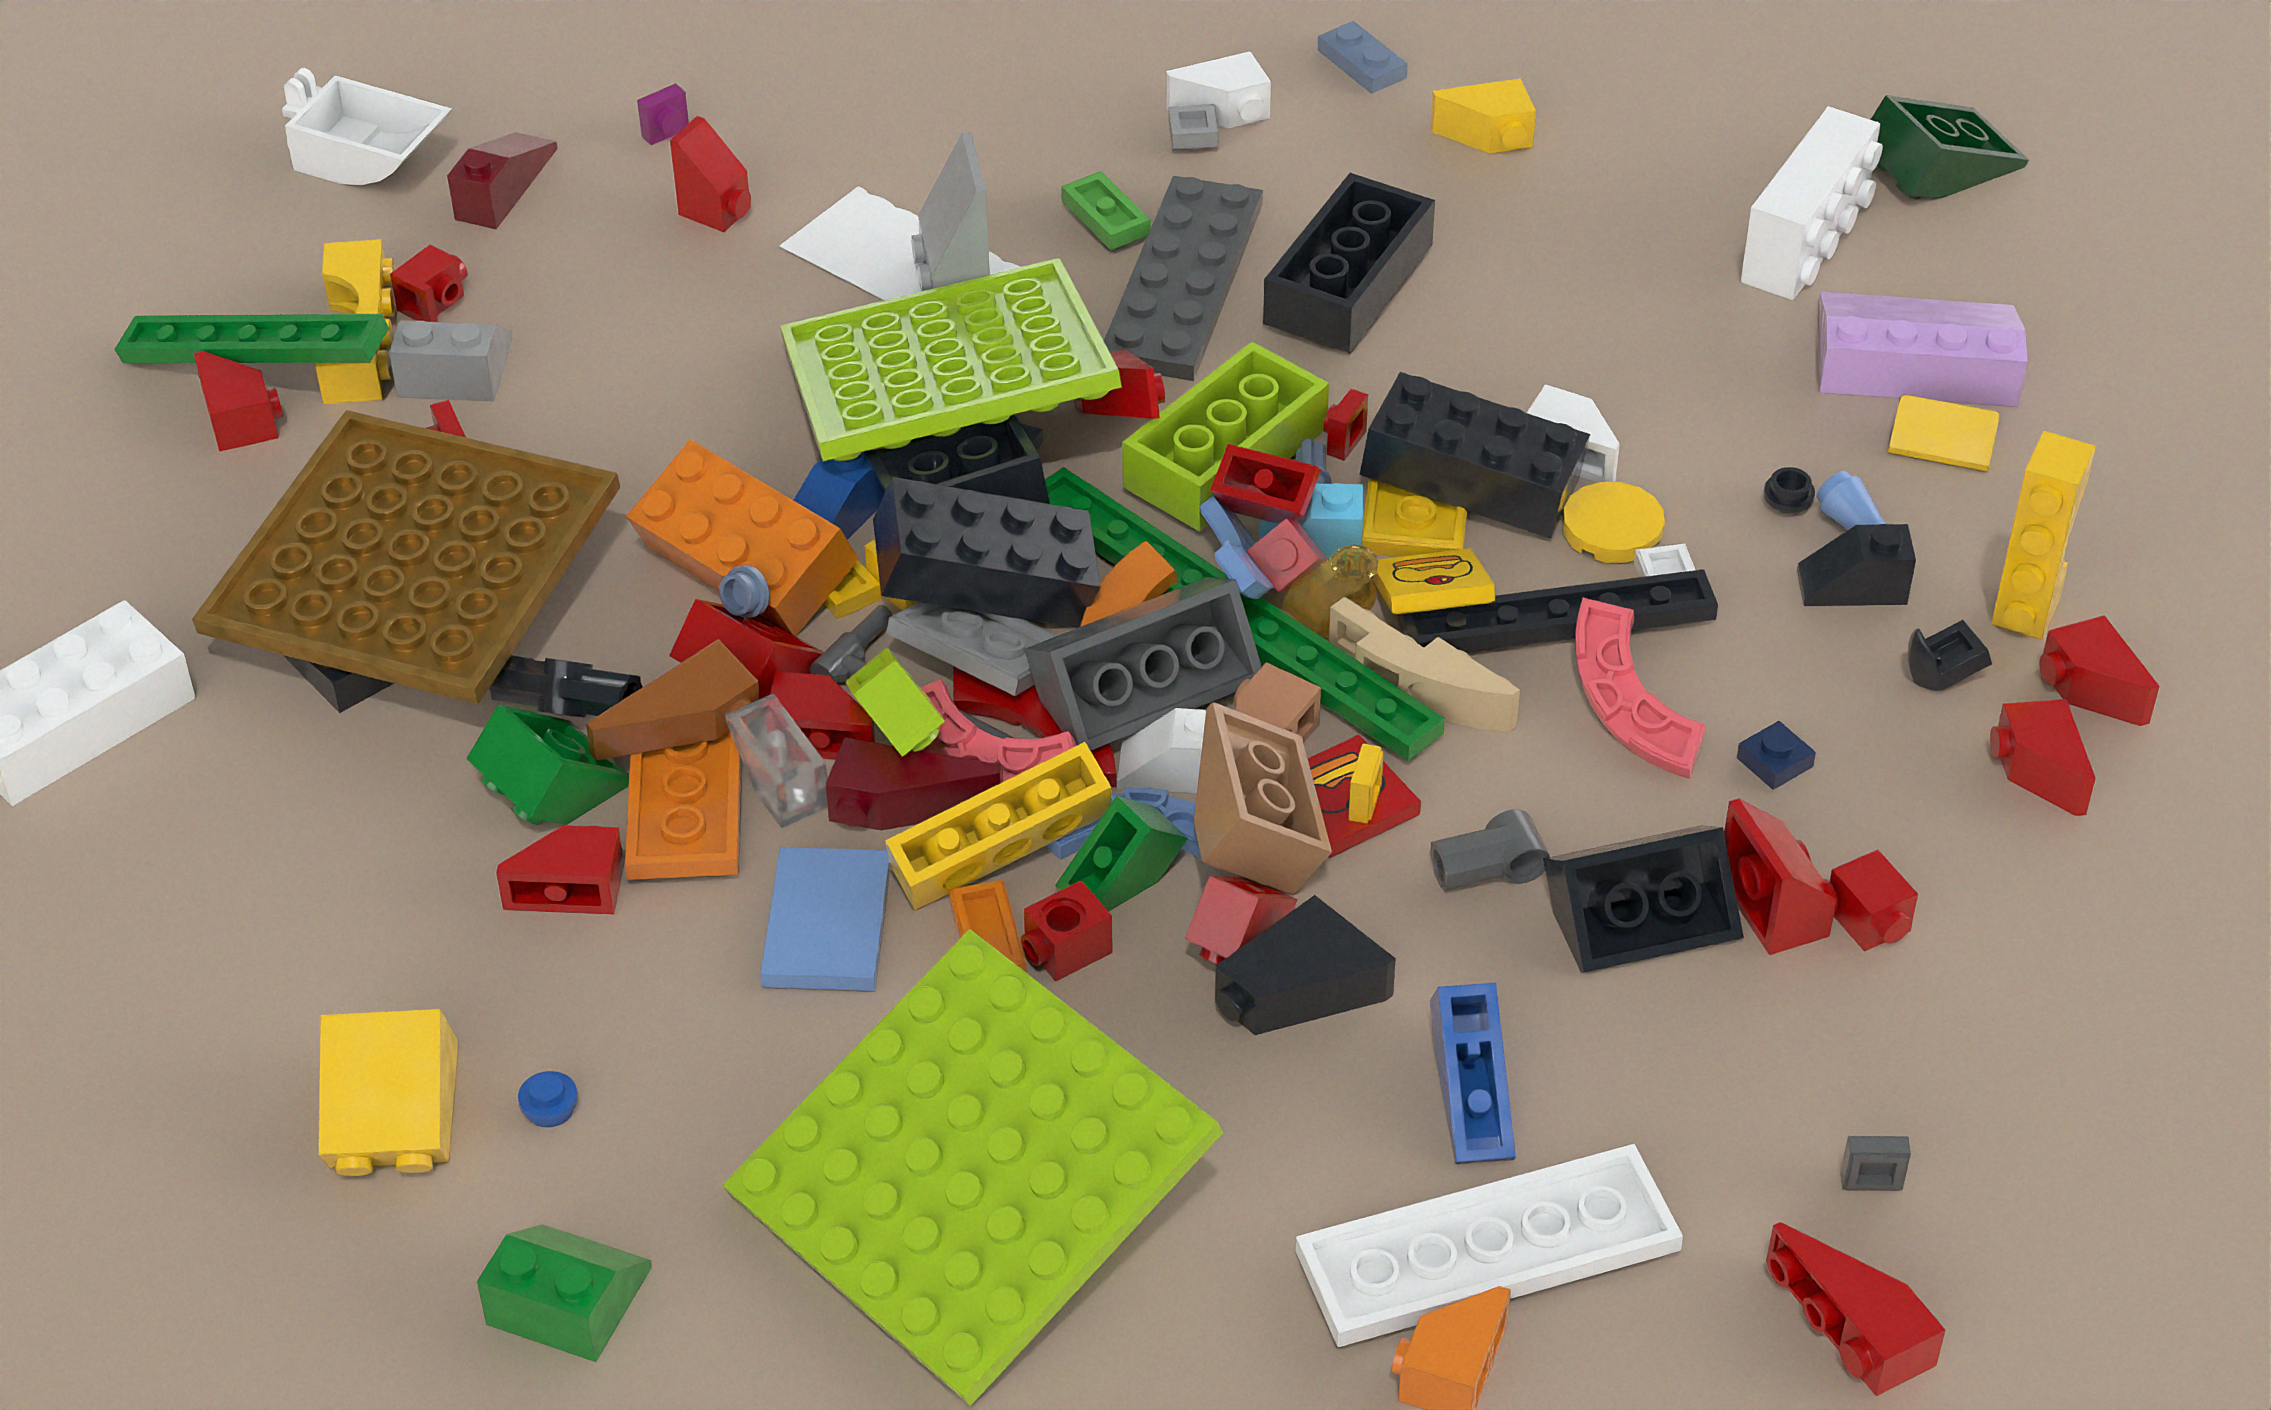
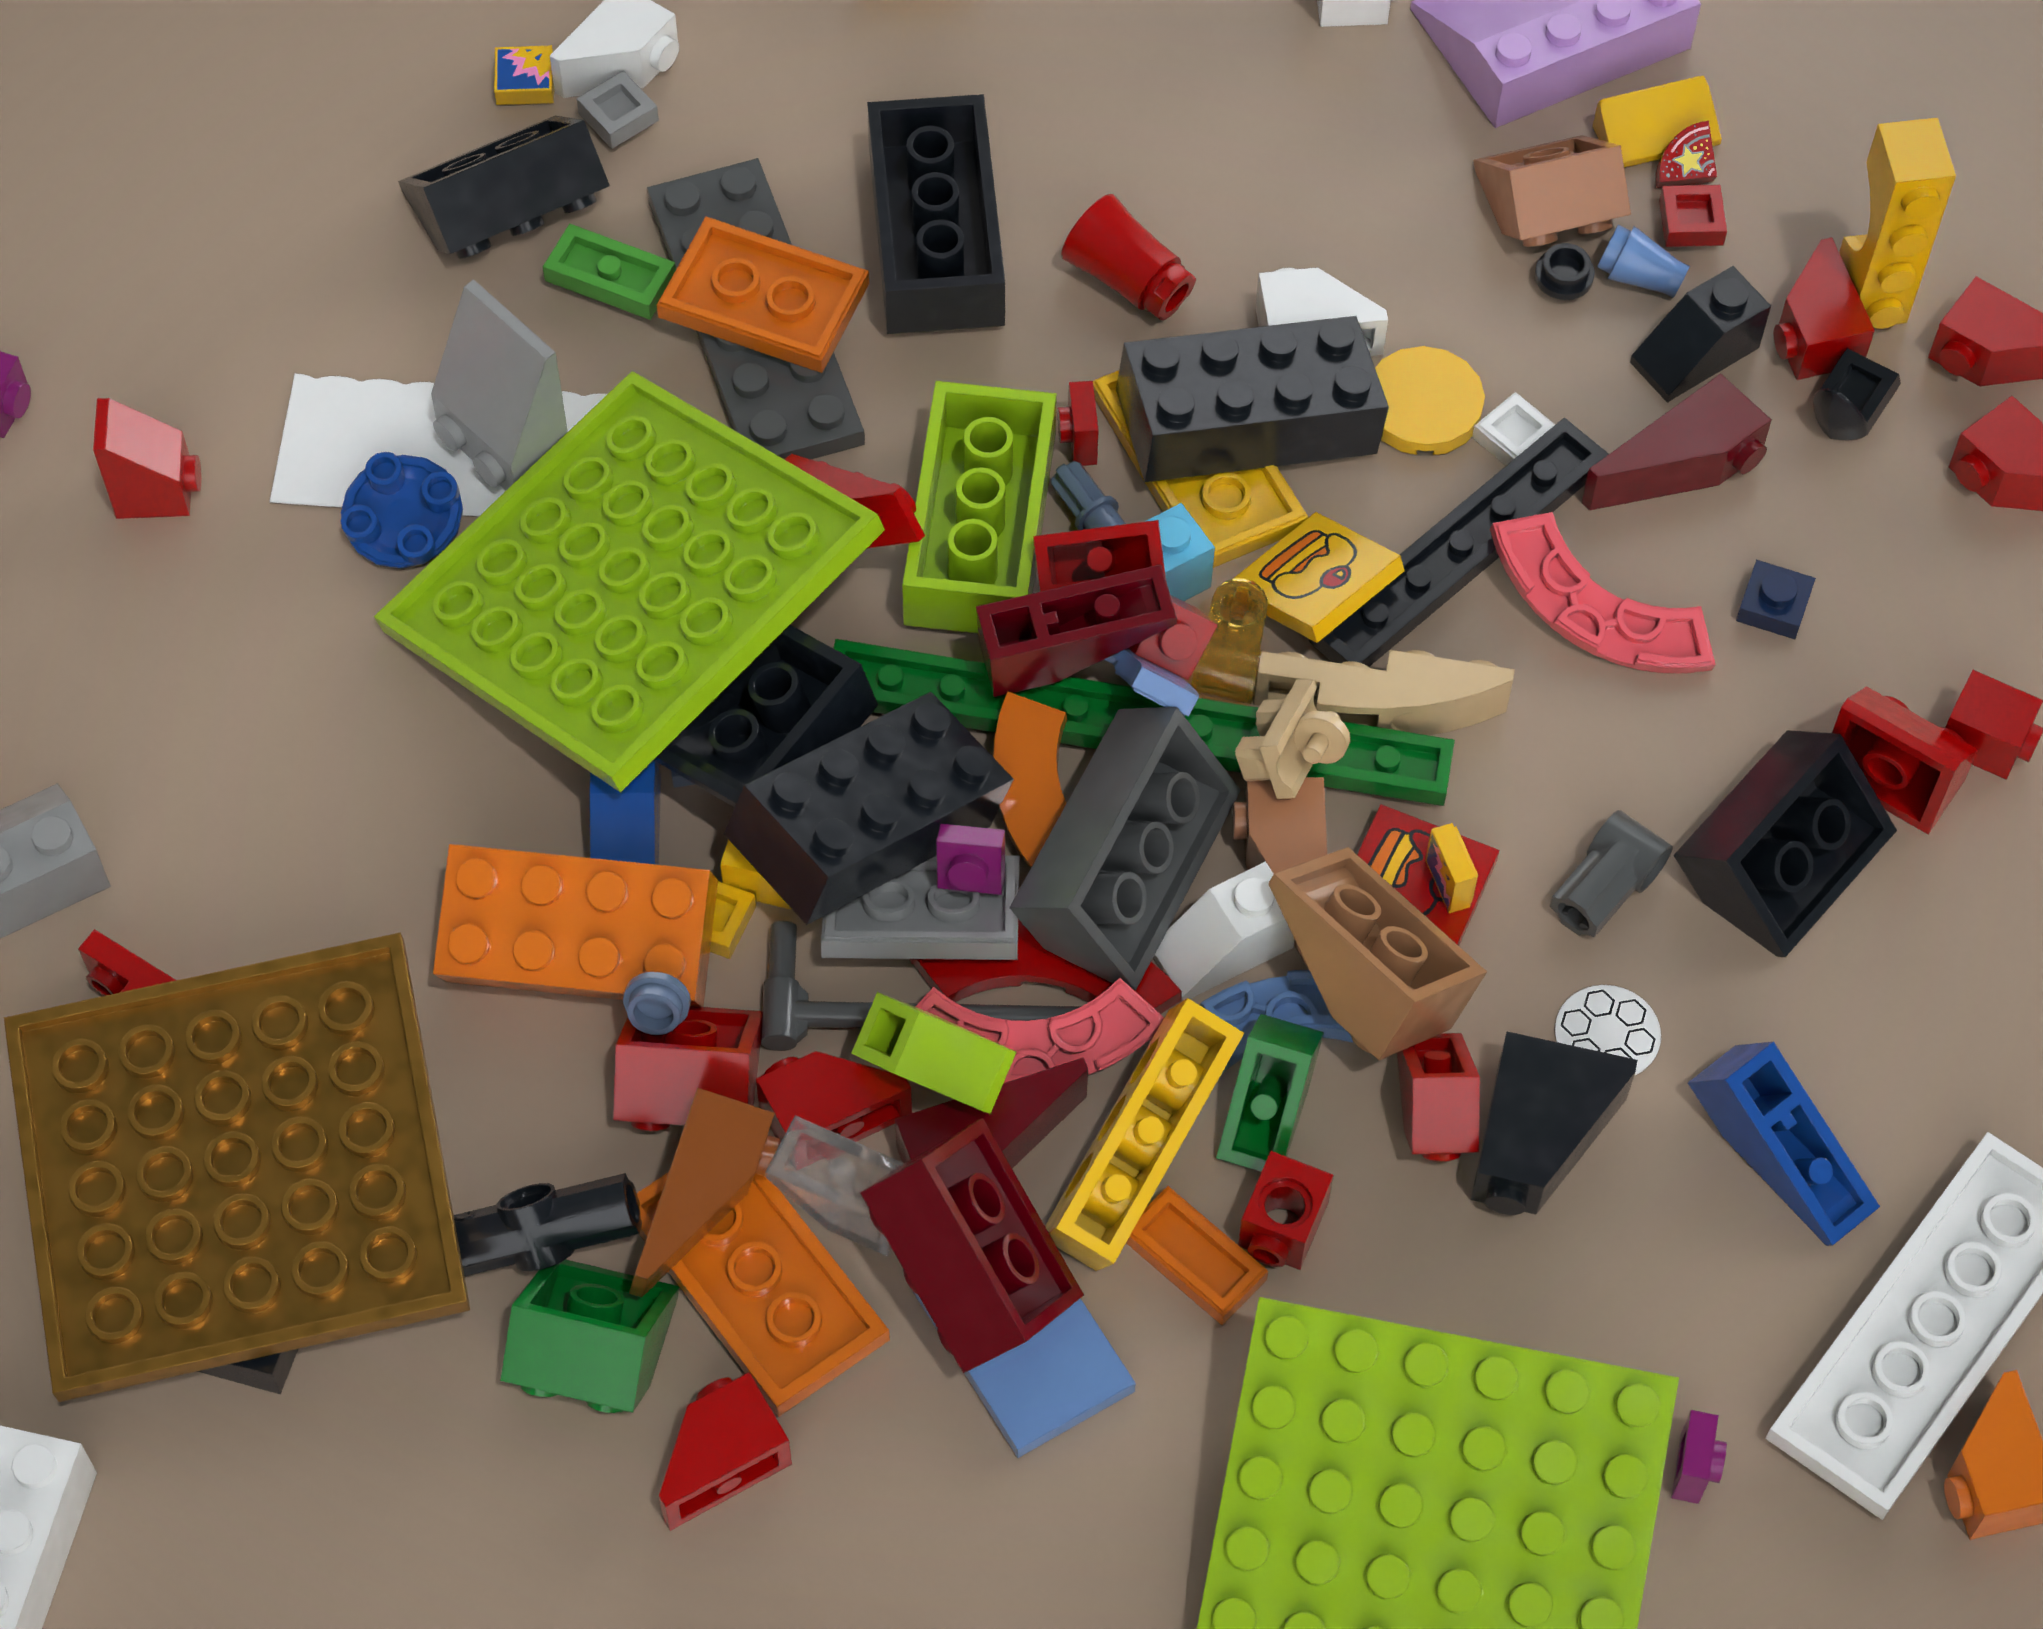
camera: 35 degrees left, 15 degrees up
(821, 820) = (972, 1246): none -> dark red slope
(850, 277) = (401, 510): none -> blue dish
(1028, 614) = (971, 859): none -> magenta plate
(1079, 134) = (506, 185): none -> black slope
(1146, 87) = (523, 75): none -> tile
(1190, 257) = (763, 294): none -> orange tile
(1205, 511) = (1070, 627): none -> dark red slope
(1226, 1226) = (1698, 1457): none -> magenta plate
(1309, 648) = (1291, 740): none -> tan hips
(1420, 950) = (1610, 1022): none -> white sticker
(1462, 338) = (1127, 258): none -> red plant
(1780, 629) = (1684, 449): none -> dark red slope
(1822, 435) = (1555, 188): none -> nougat slope
(1919, 497) = (1693, 215): none -> red plate
(1947, 463) = (1688, 158): none -> red tile
(1962, 591) = (1822, 316): none -> red slope

